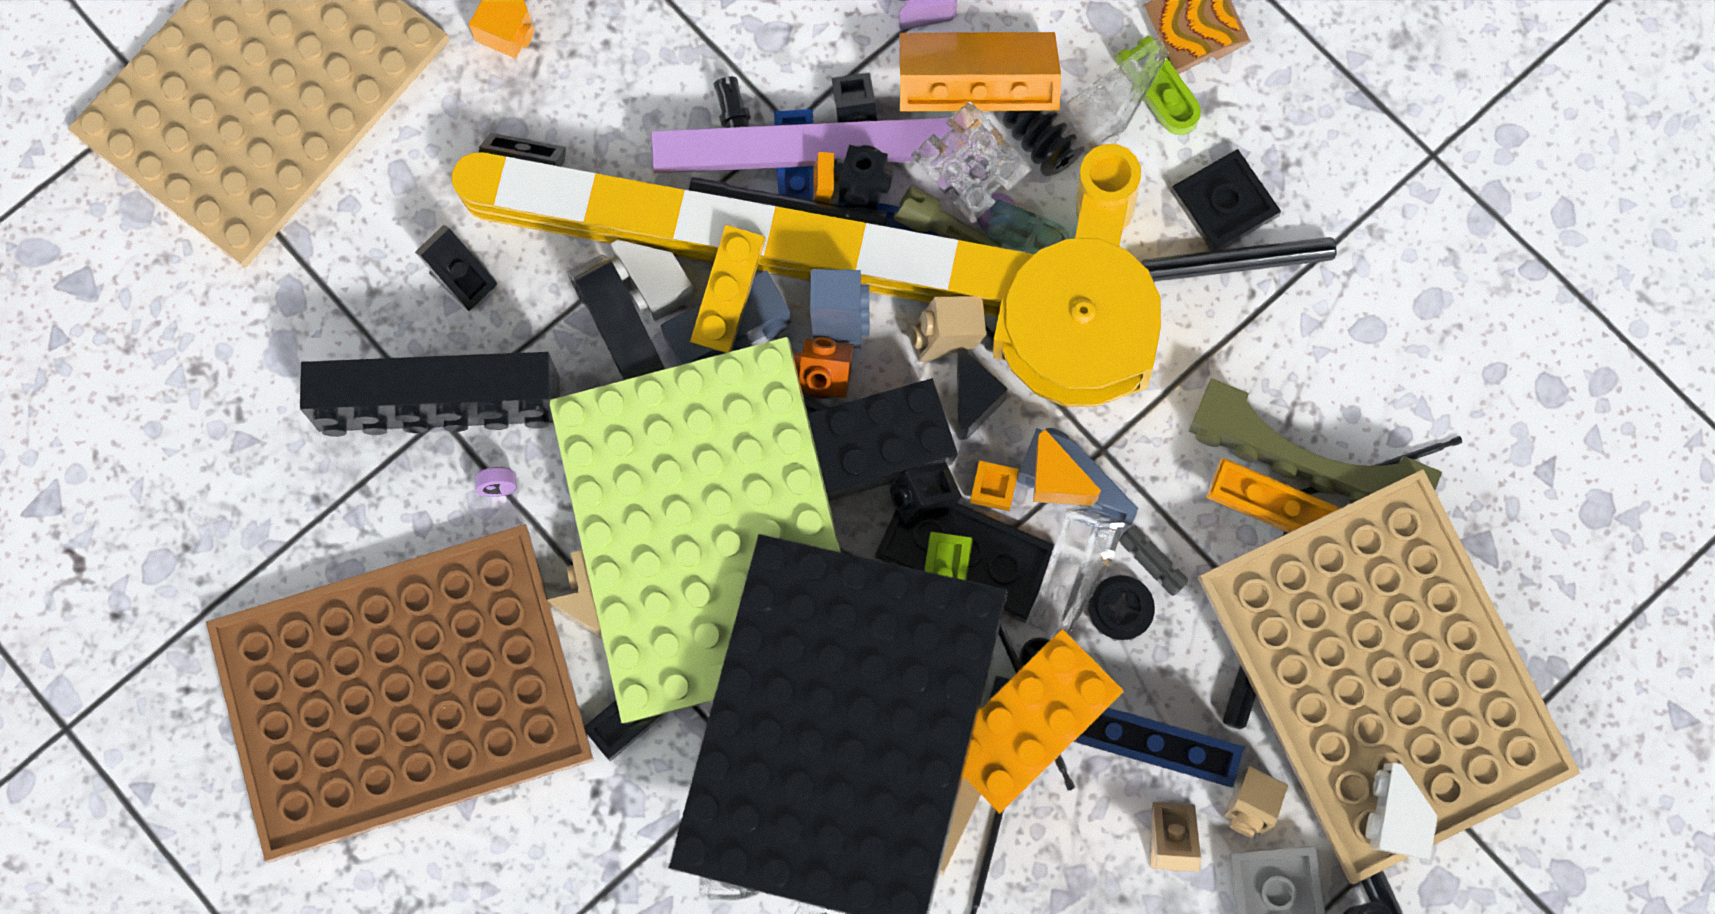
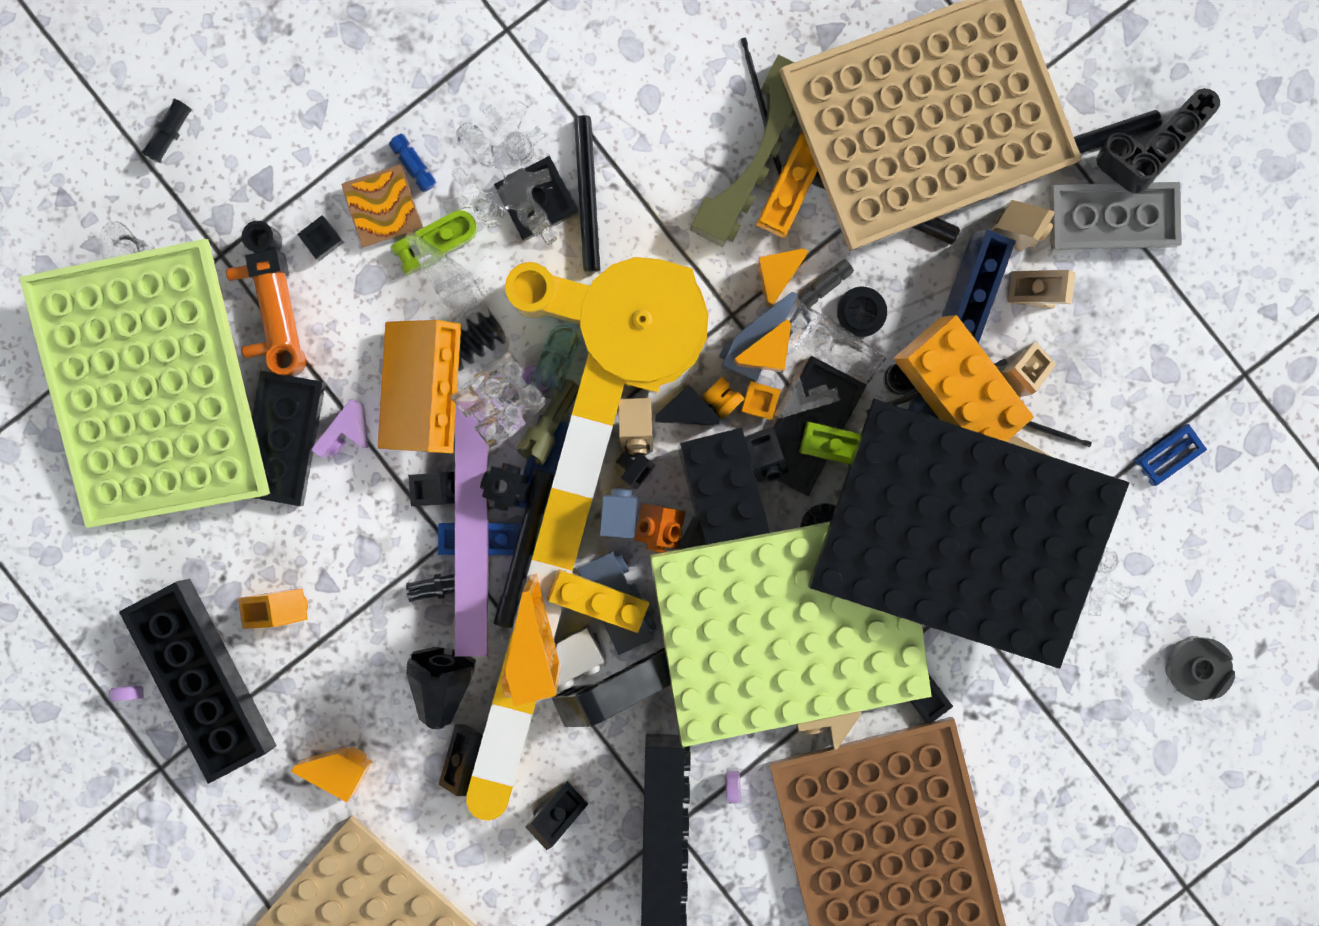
camera: 90 degrees left, 15 degrees up
(614, 120) = (438, 684): none -> black cone
(679, 188) = (532, 660): none -> light orange slope
(823, 177) = (503, 518): light orange tile -> none
(894, 336) = (636, 469): none -> black tile
(994, 436) = (722, 398): none -> light orange wheel
(996, 522) = (796, 402): none -> clear slope
(1065, 832) = (1028, 370): none -> tan slope
(1162, 497) = (777, 271): none -> light orange slope
(1253, 54) = (412, 162): none -> blue axle
(1272, 160) = (517, 183): none -> clear plant
(1403, 816) = (1047, 118): white slope -> none

